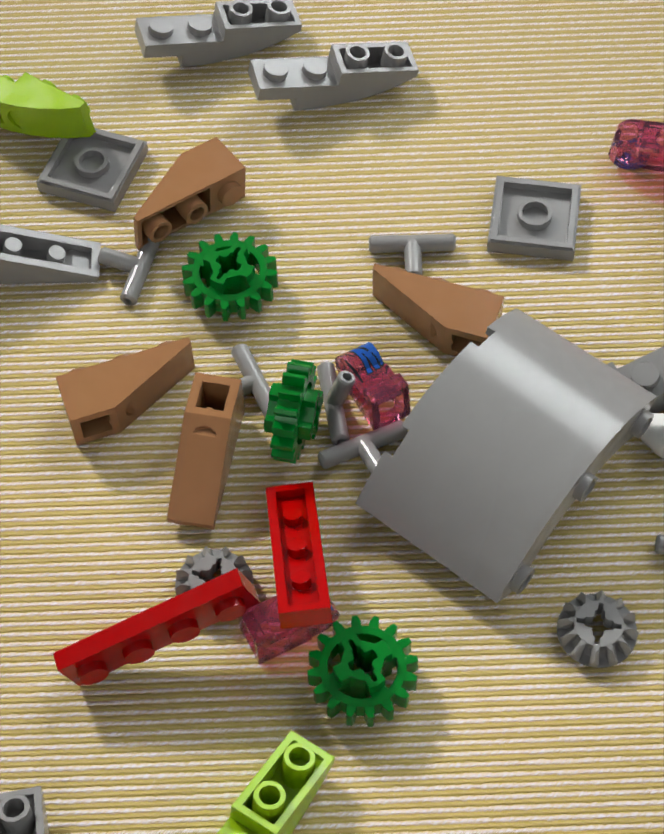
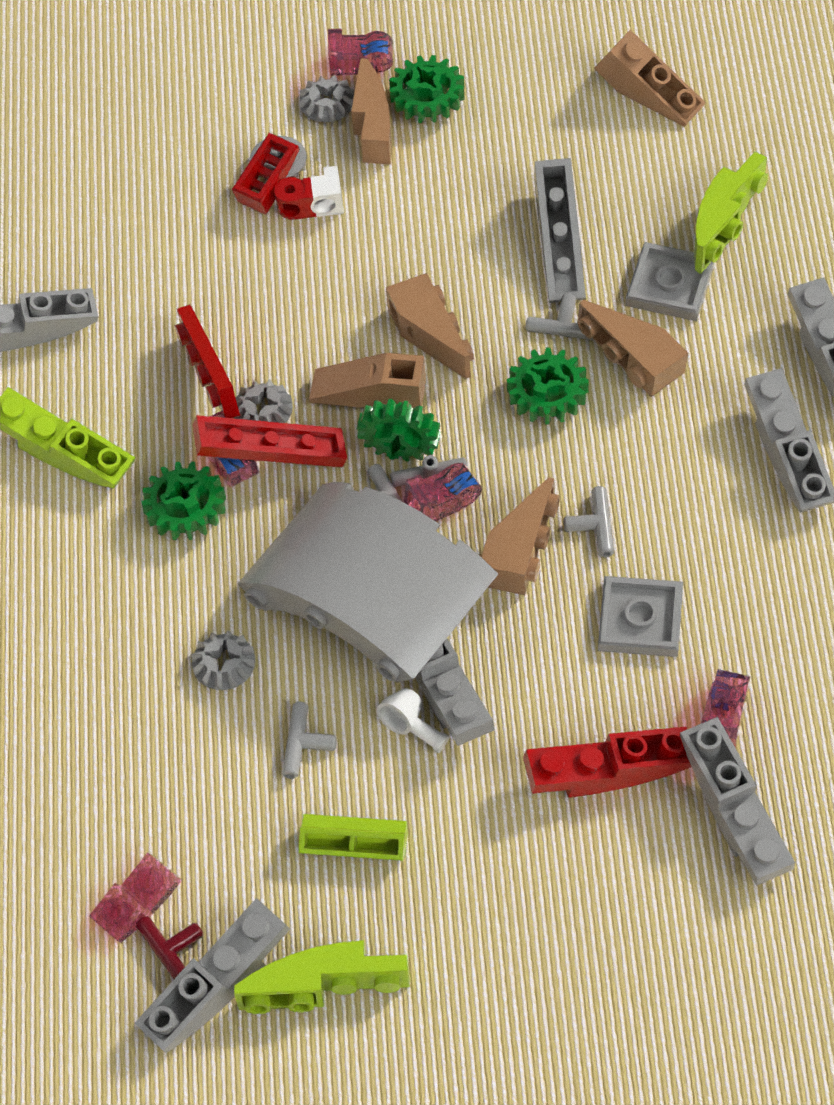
camera: 90 degrees right, 0 degrees up
(253, 379) = (448, 416): light grey piece -> none

